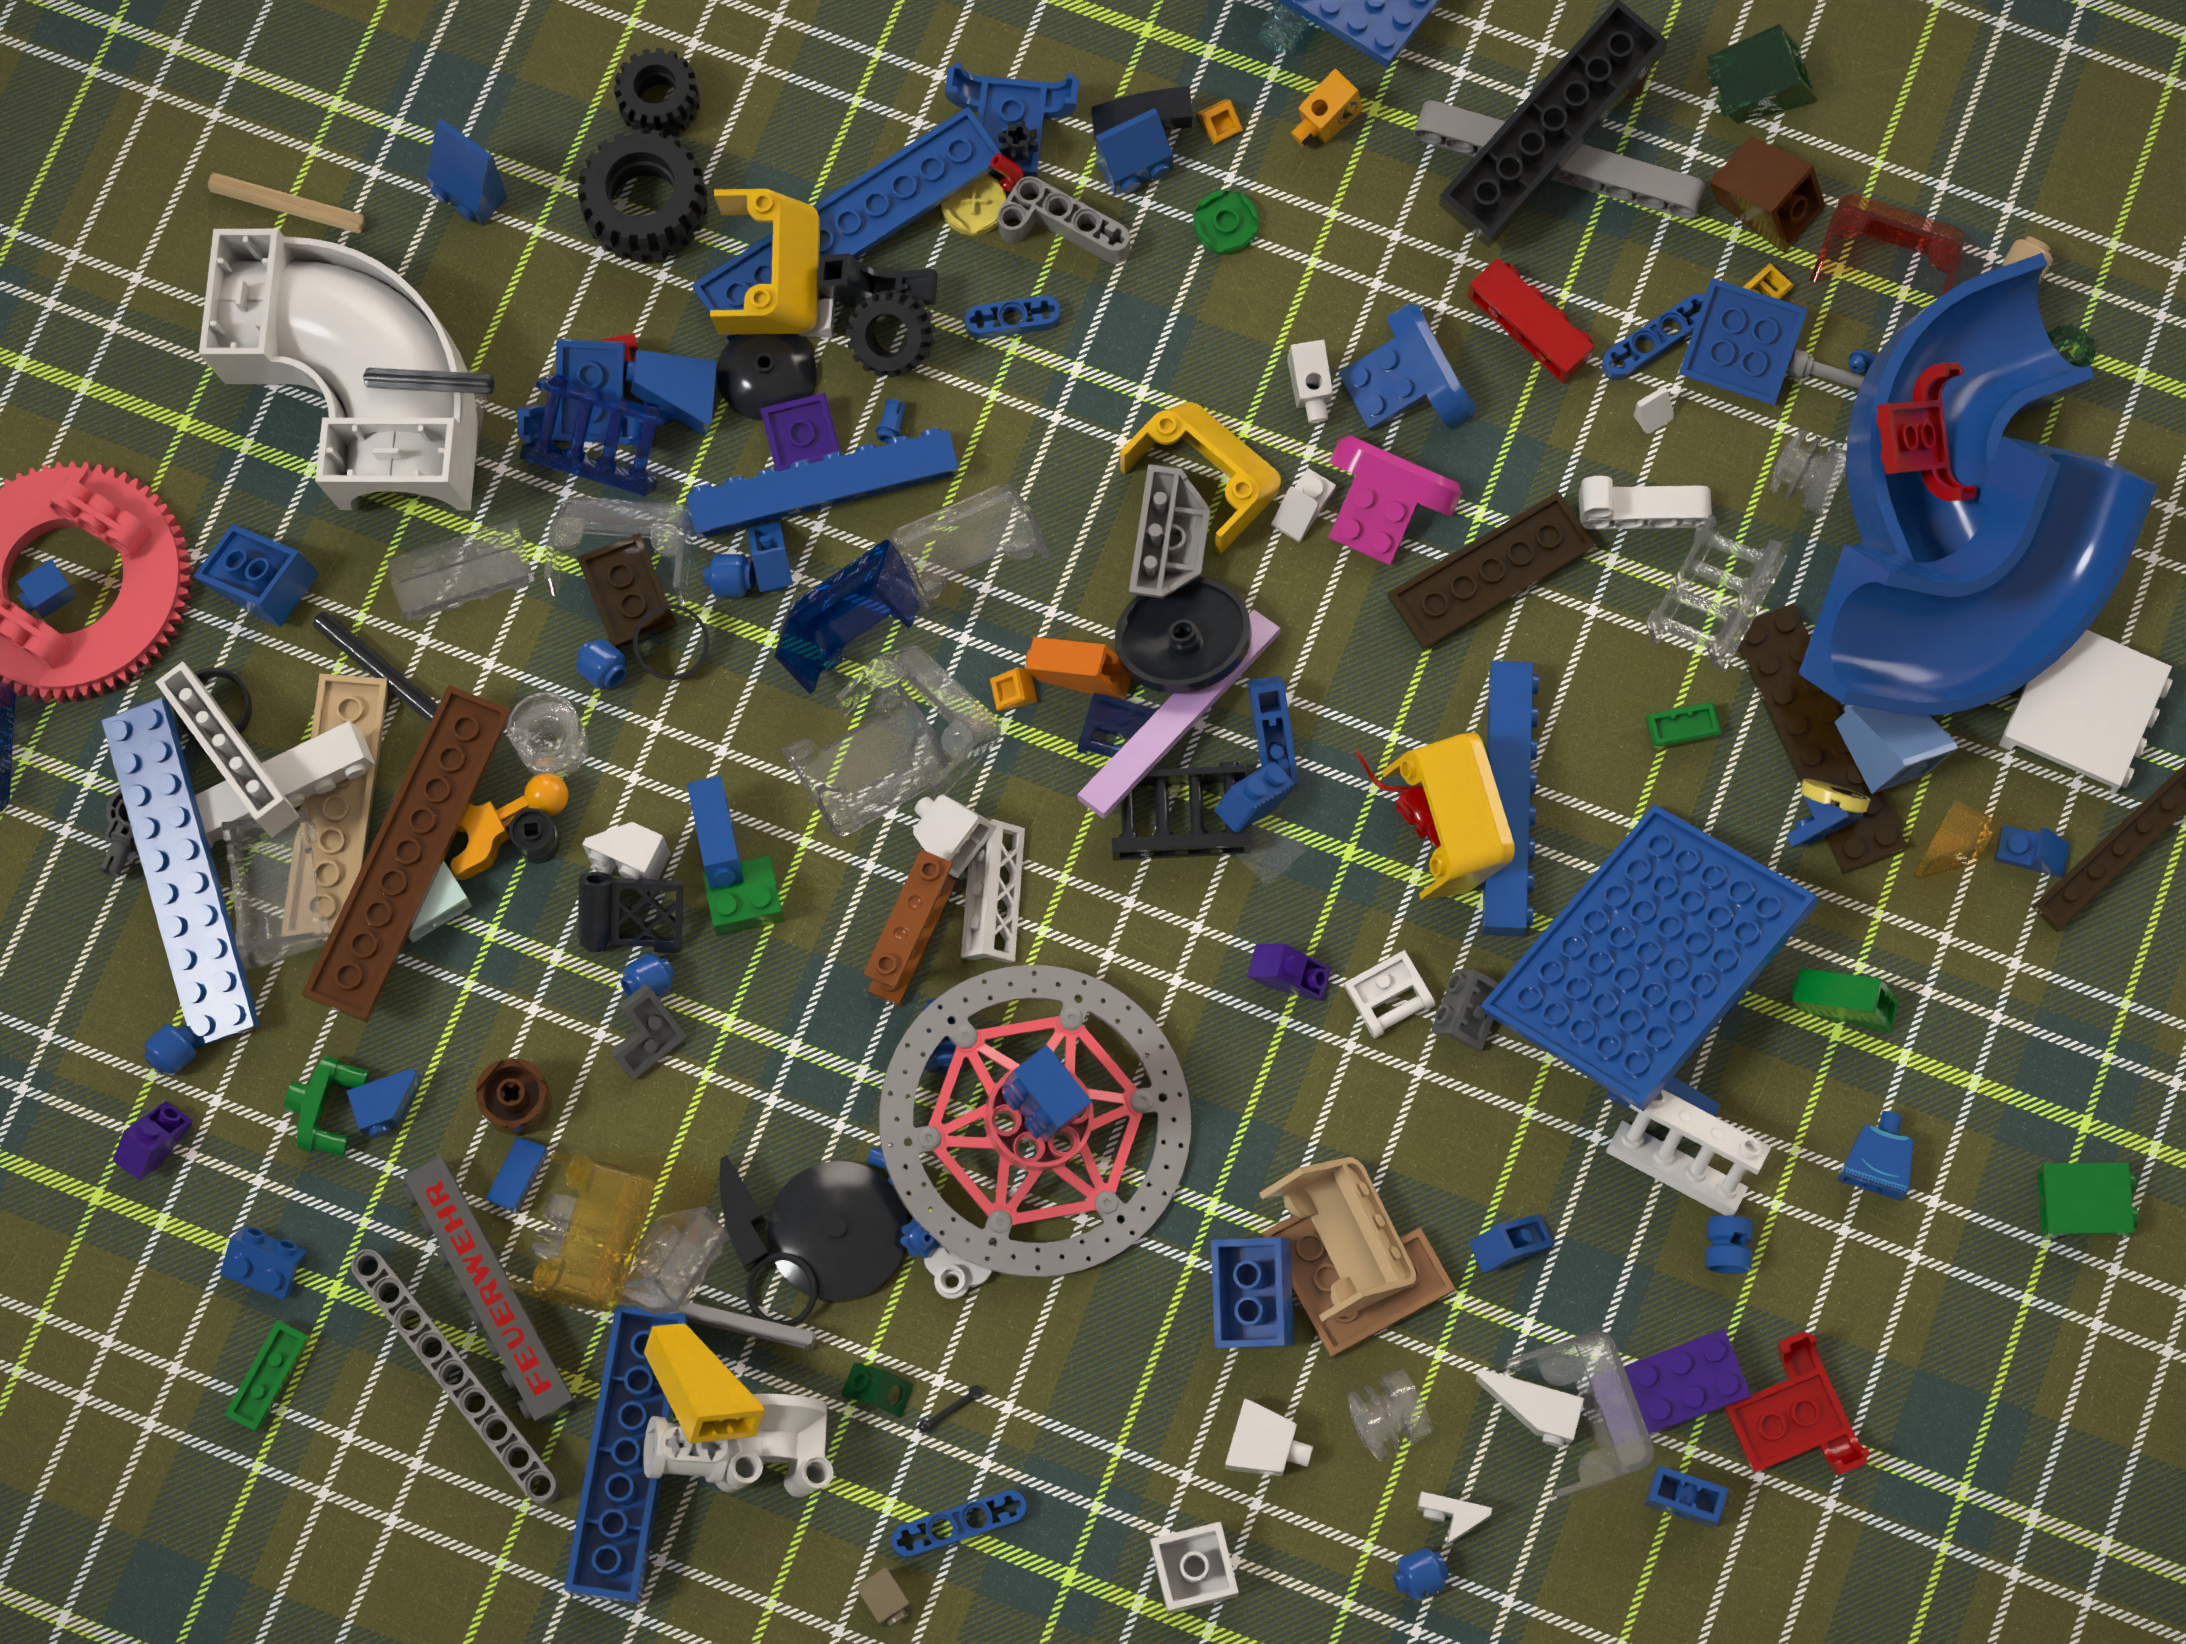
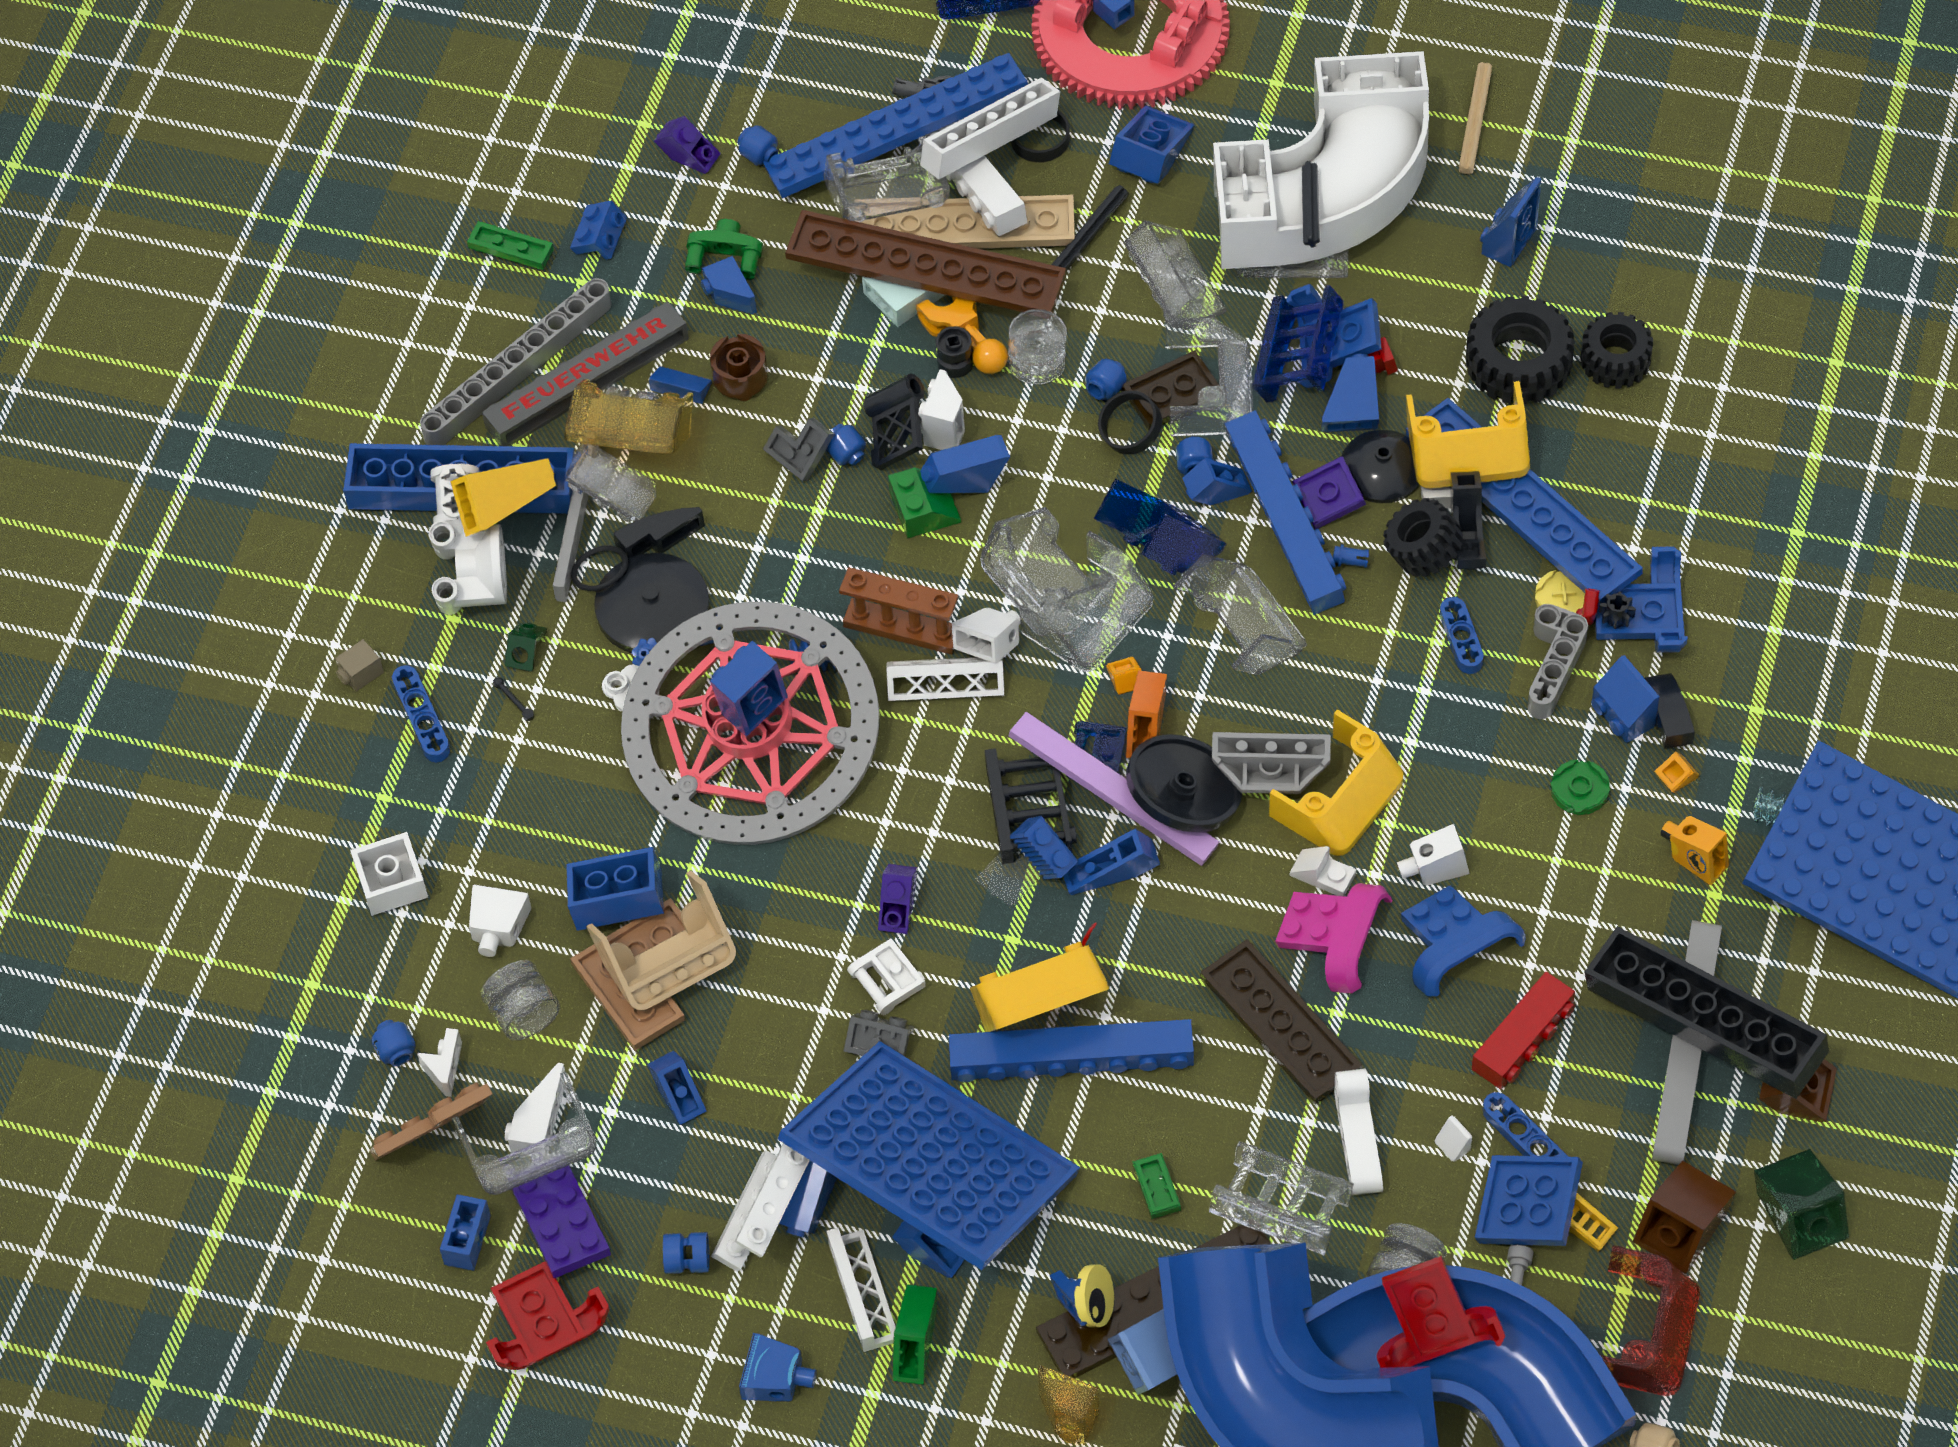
camera: 85 degrees right, 15 degrees down
(1540, 1500) = (439, 1115): none -> medium nougat plate
(1786, 1064) = (852, 1287): none -> white fence

